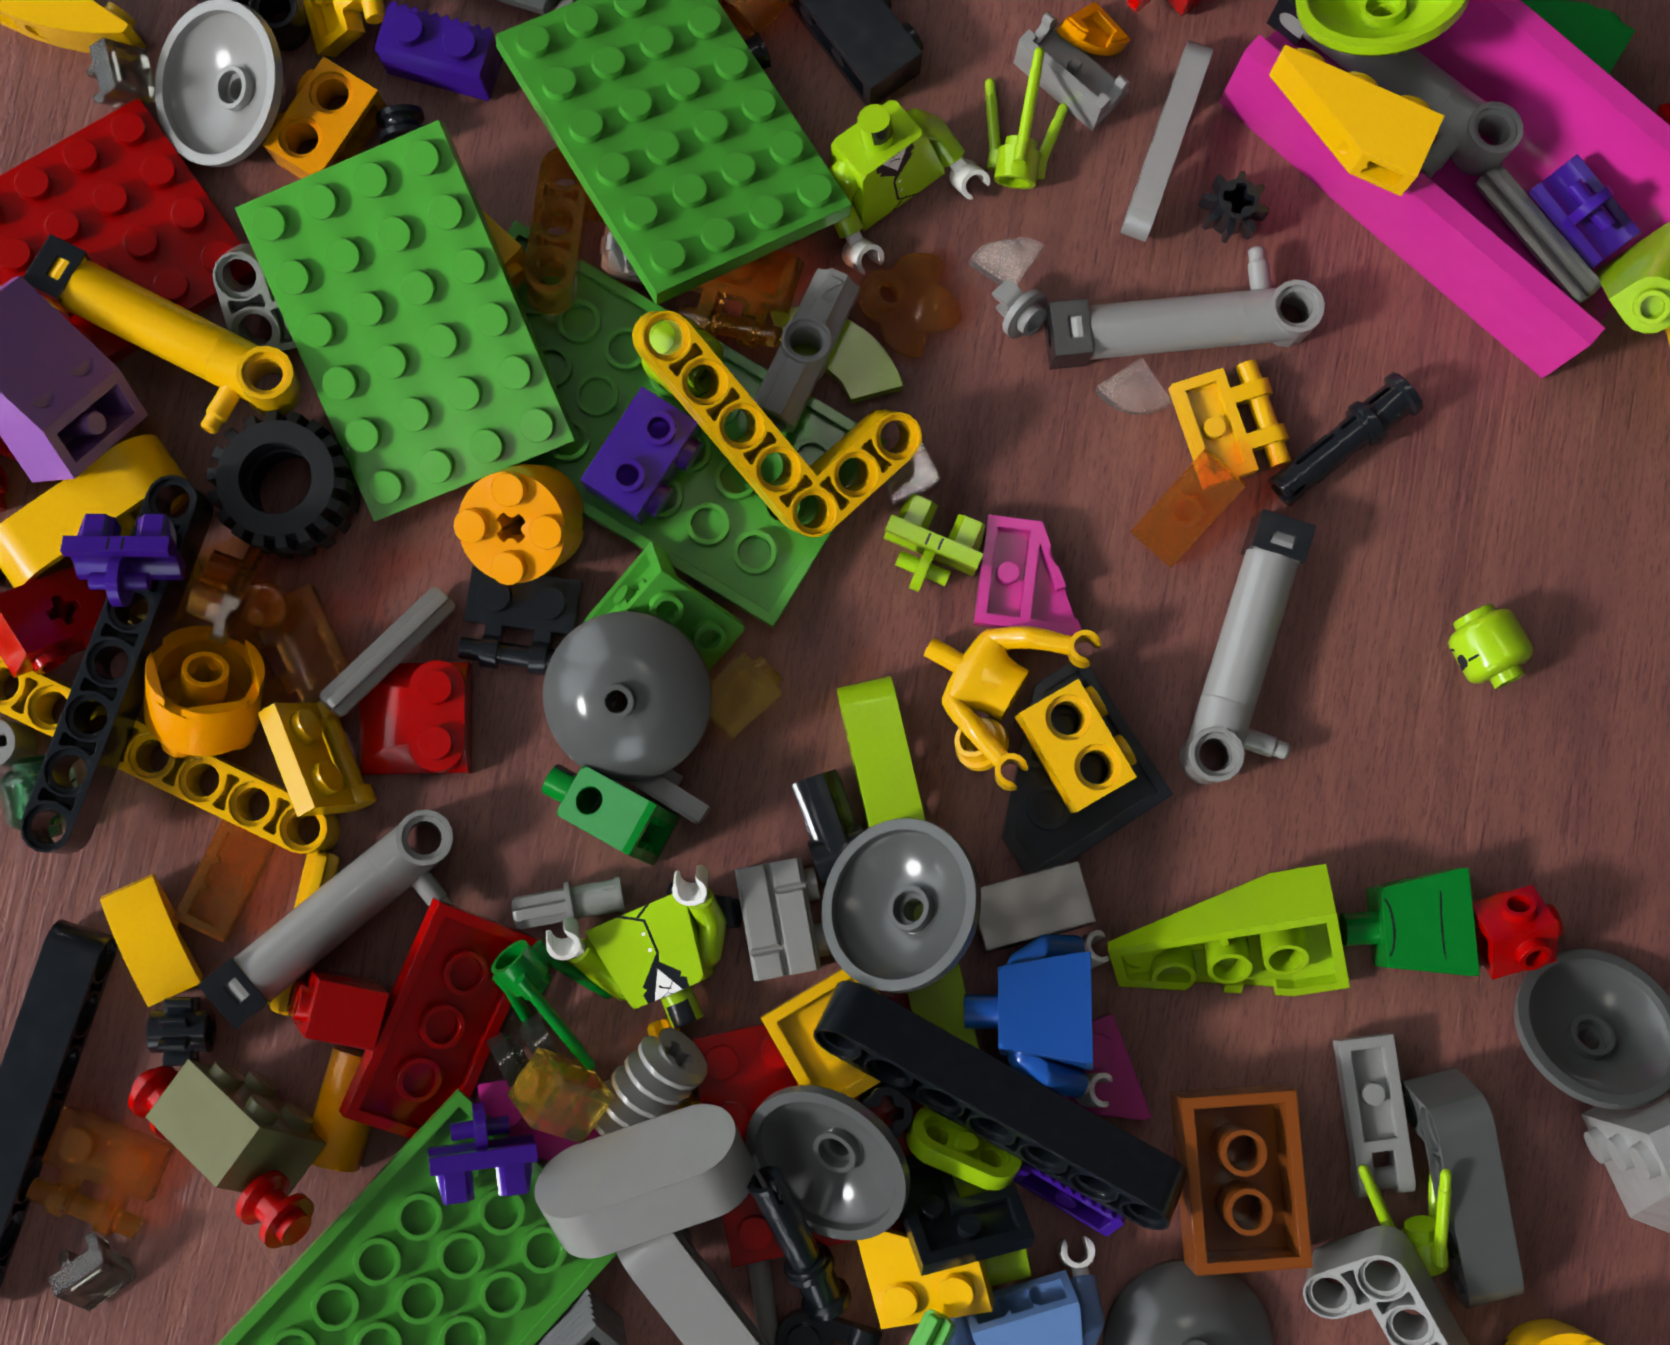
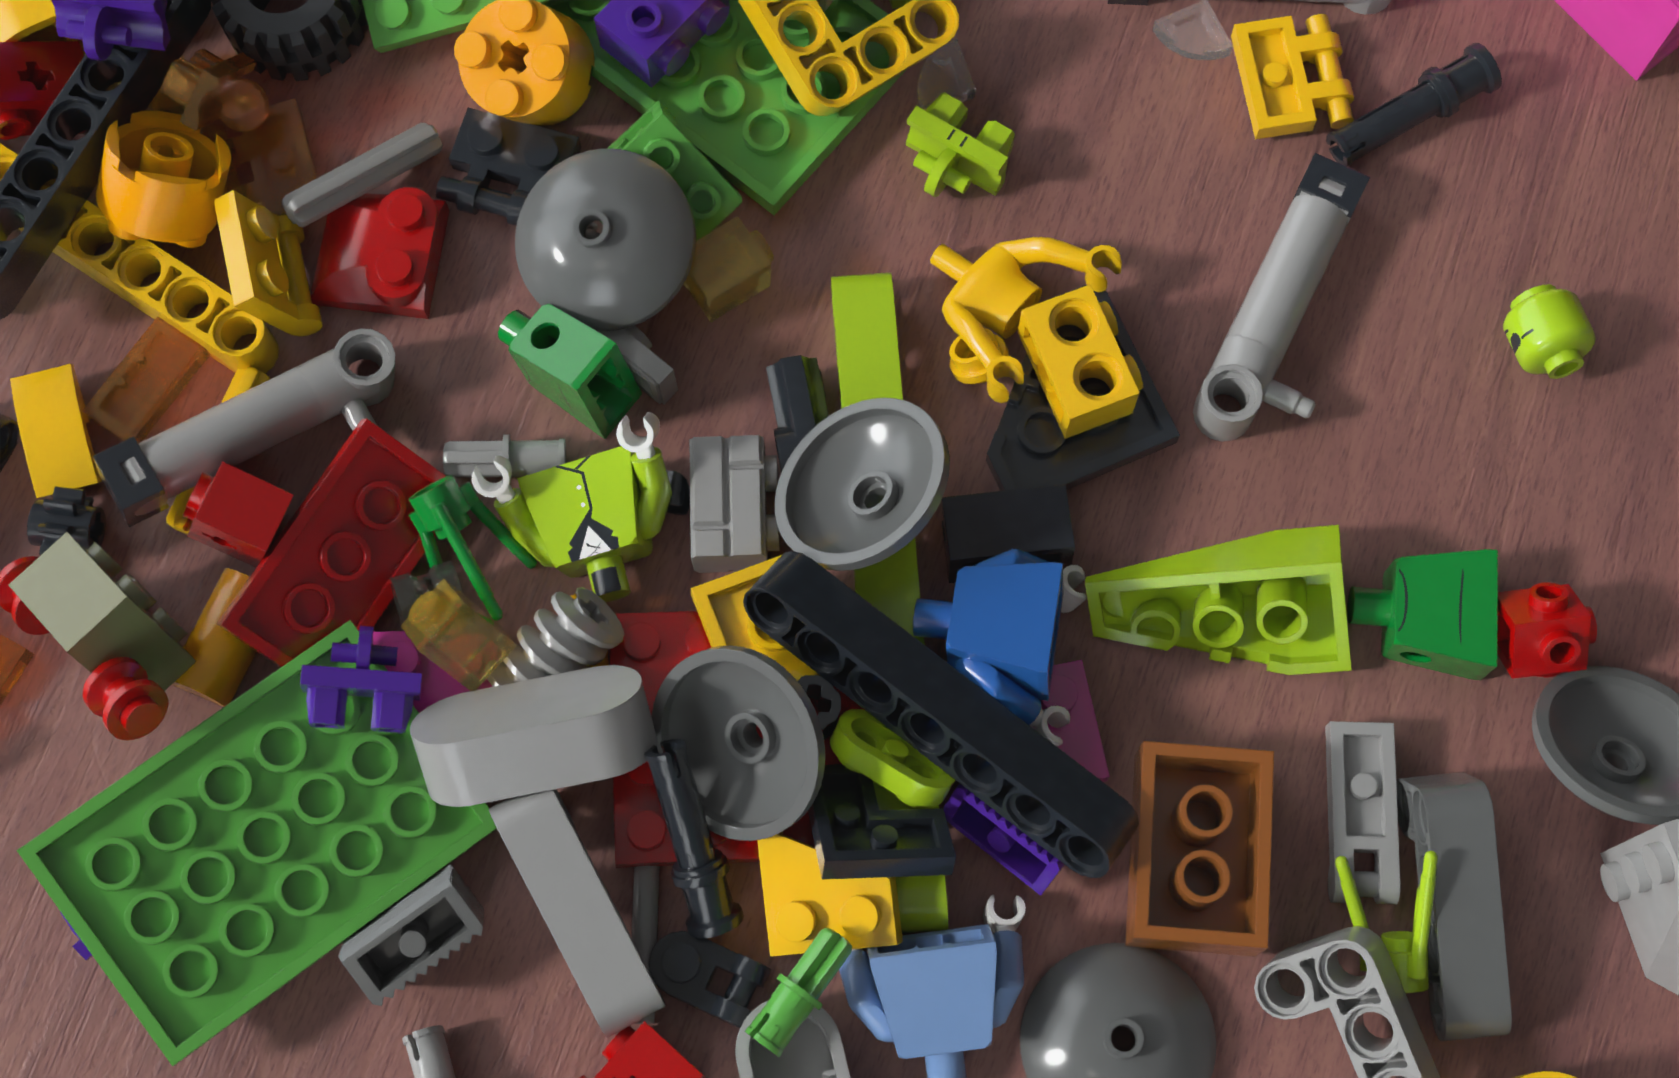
camera: 15 degrees right, 10 degrees down
(1020, 579) = (1044, 193): dark pink wing -> none
(1188, 507) = (1235, 148): clear orange plate -> none

